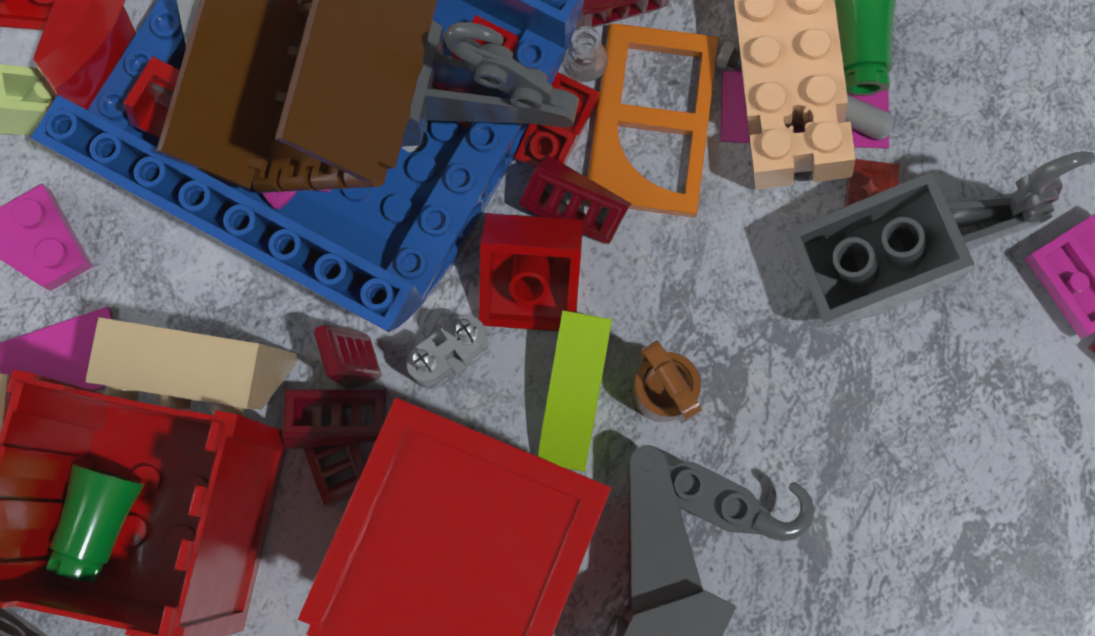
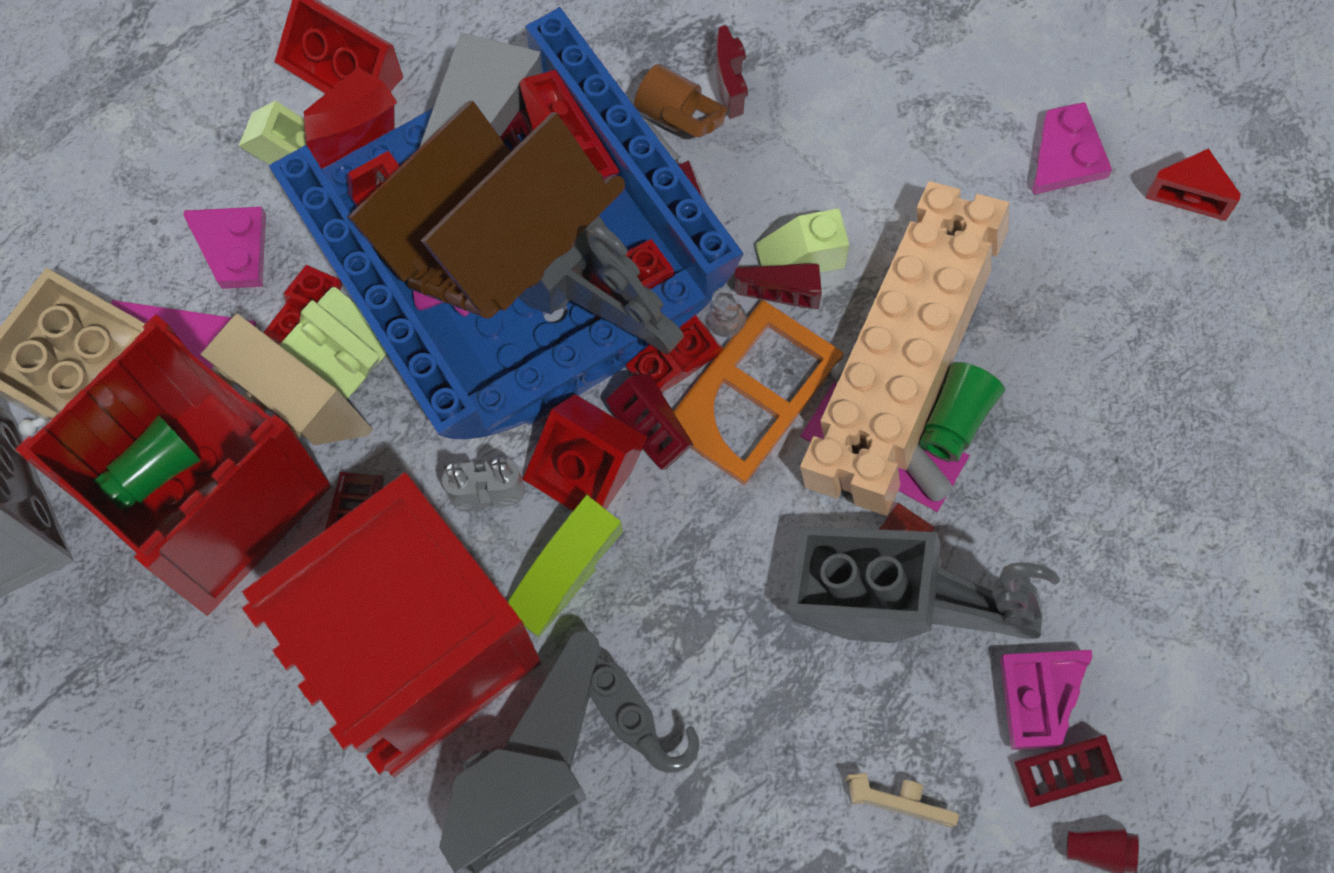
camera: 30 degrees right, 10 degrees down
(155, 271) = (307, 286): none -> red slope
(210, 288) = (335, 342): none -> yellowish green bracket
(315, 400) = (349, 462): dark red slope -> none
(347, 356) = (404, 445): dark red slope -> none
(666, 385) = (636, 598): dark orange piece -> none
(1018, 439) = (906, 803): none -> tan piece

